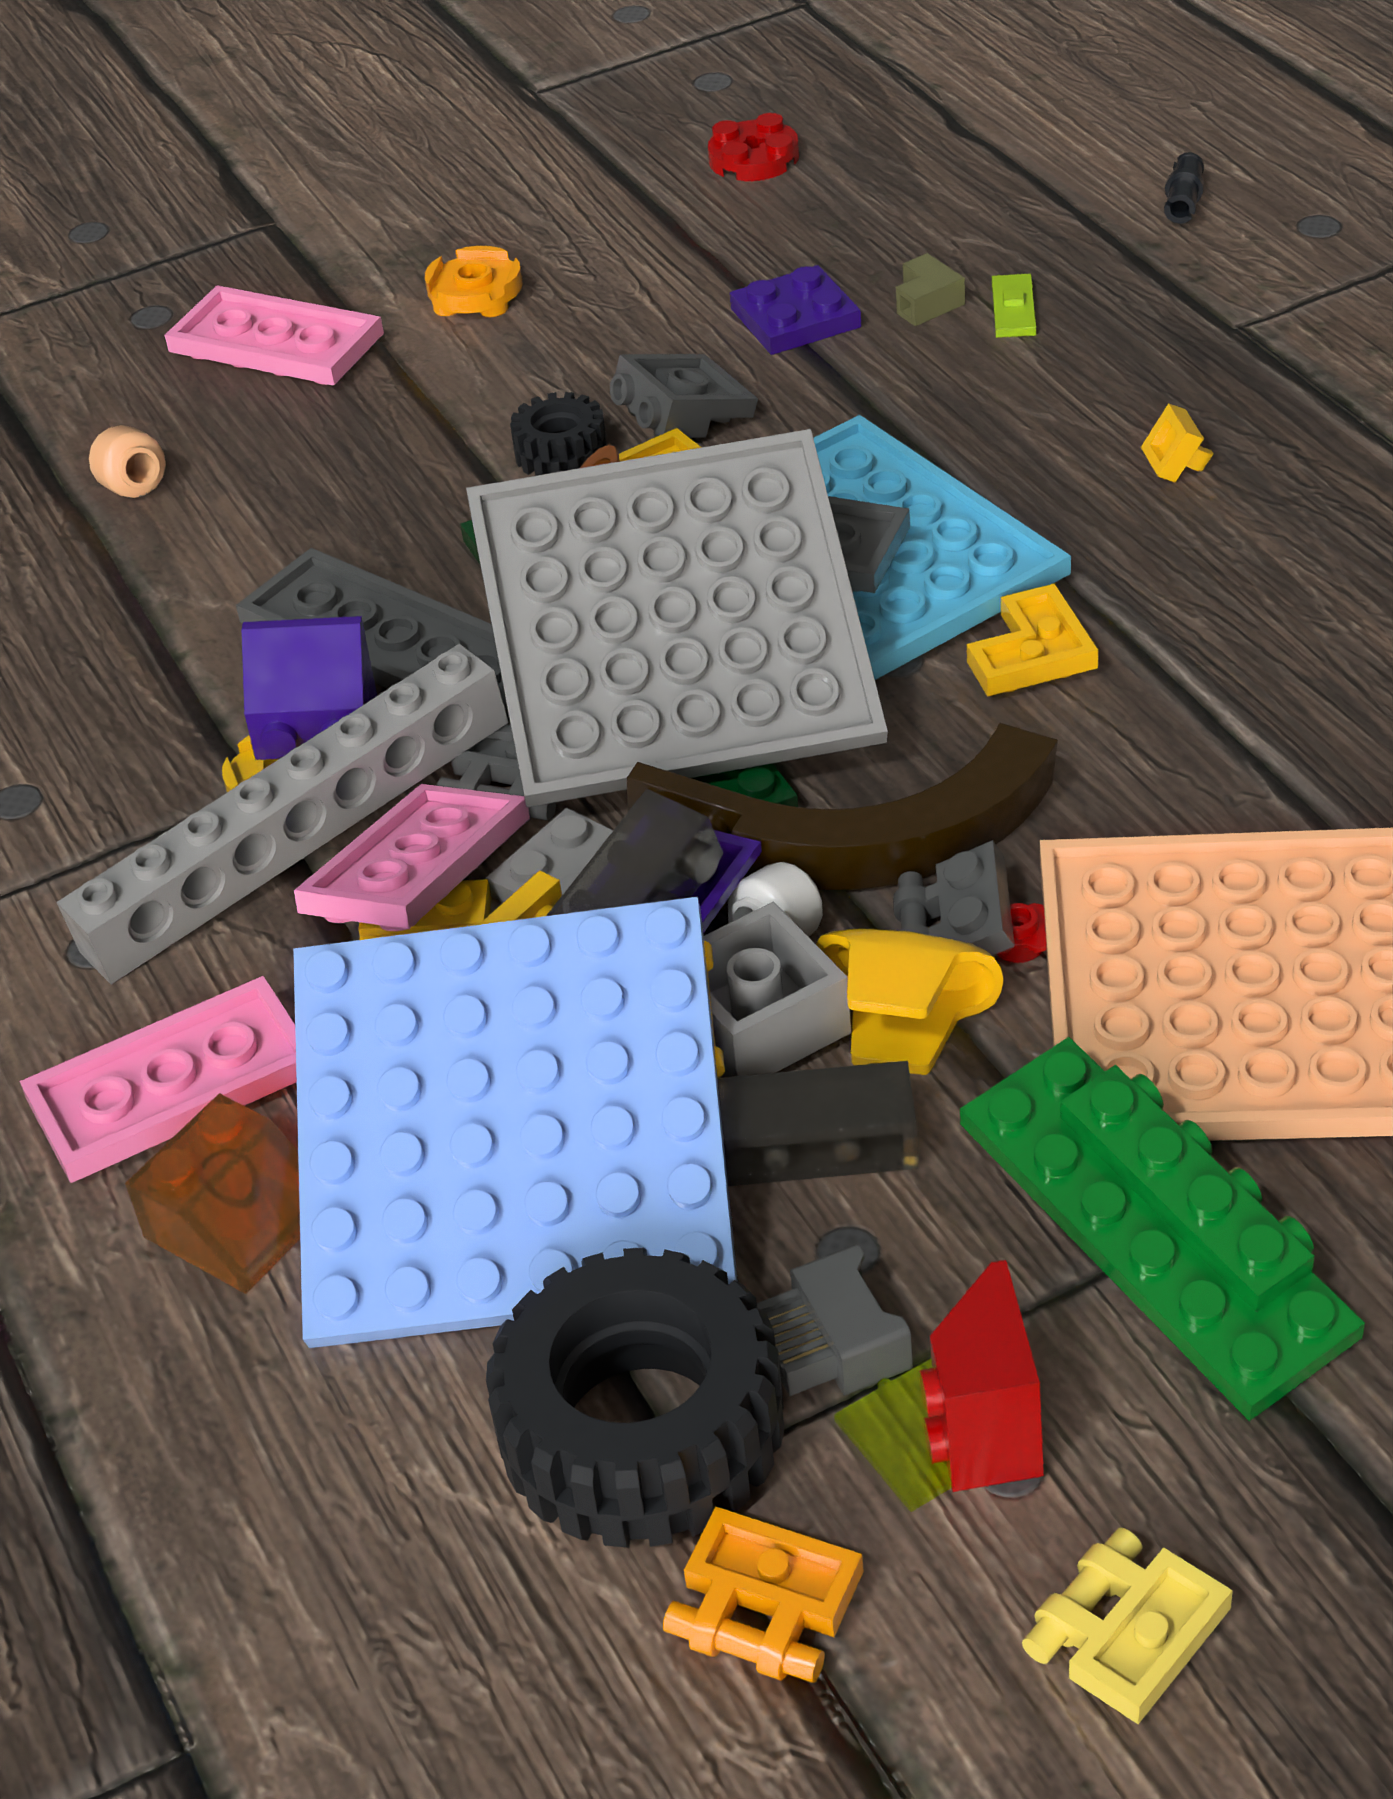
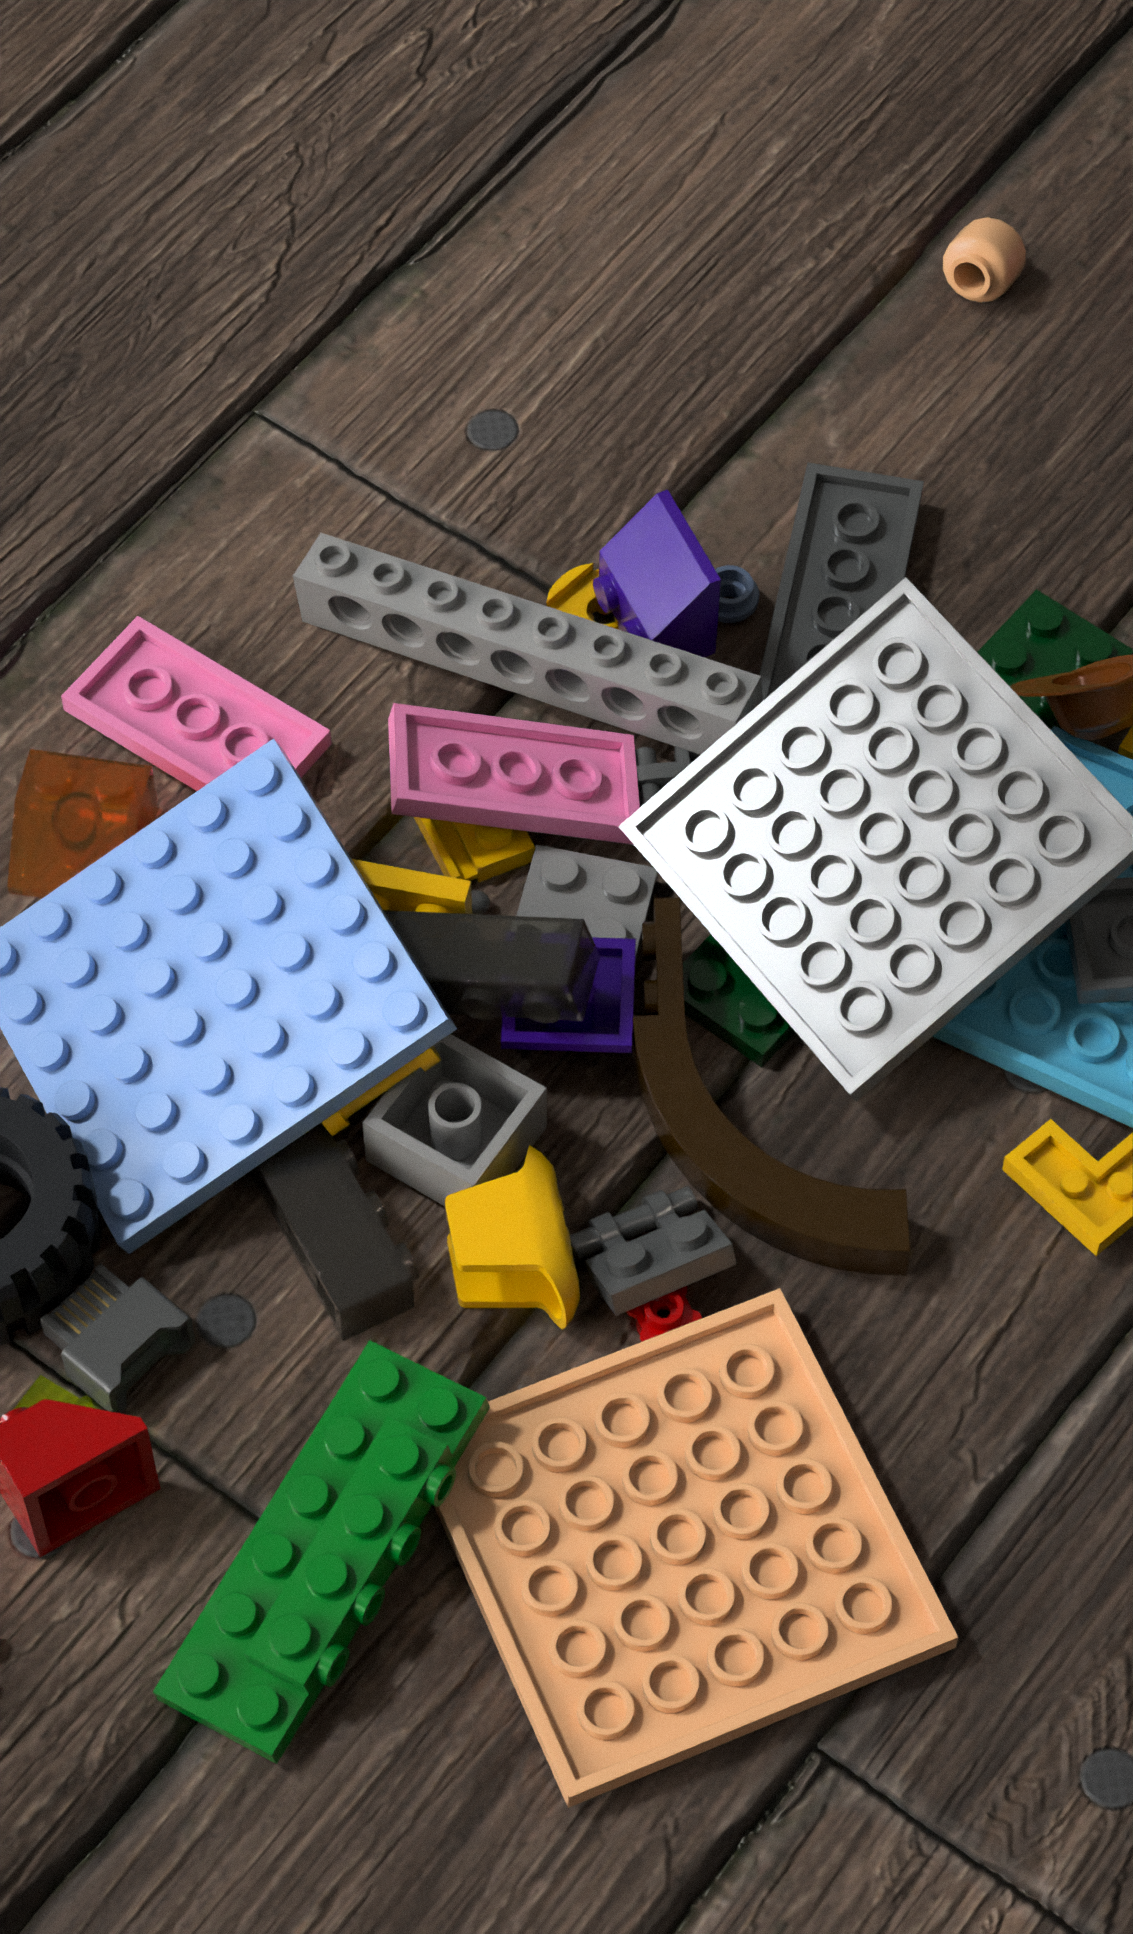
camera: 60 degrees right, 15 degrees up
(784, 885) = (590, 1096): white head -> none

